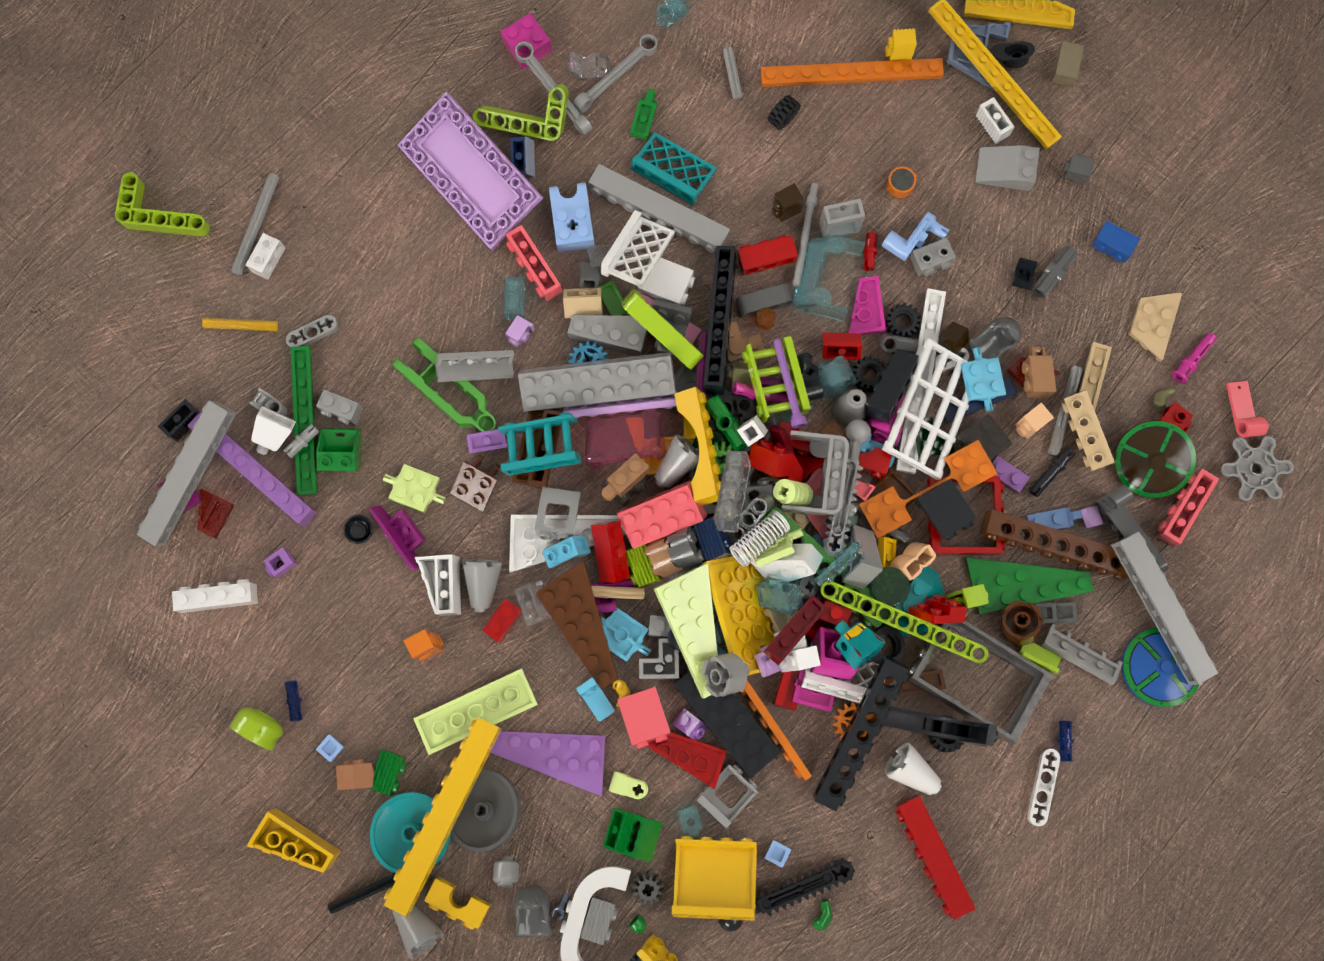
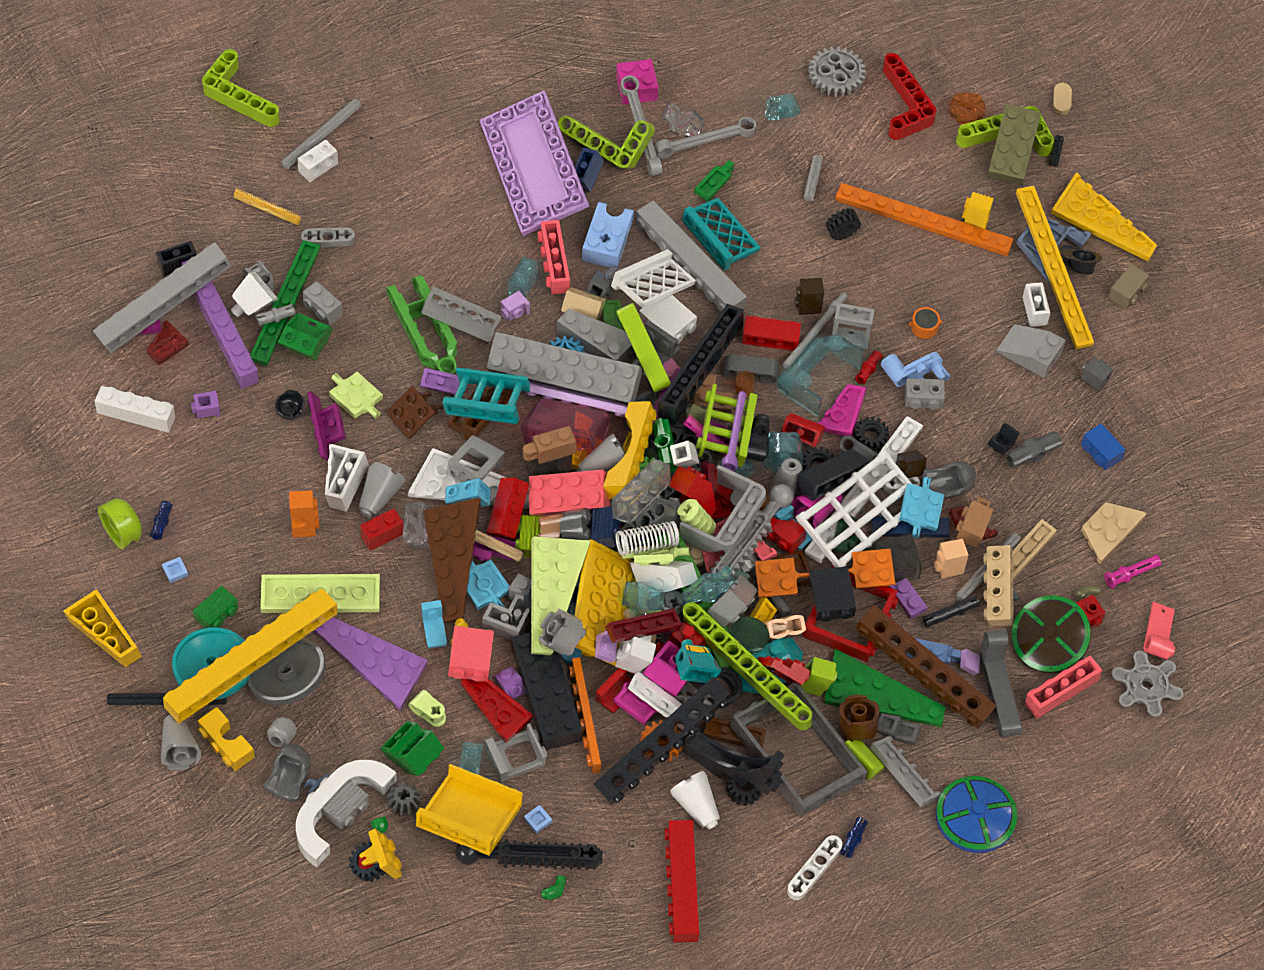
camera: 15 degrees right, 20 degrees down
(354, 775) = (187, 595): nougat brick -> none
(1164, 609) = (998, 756): light grey brick -> none

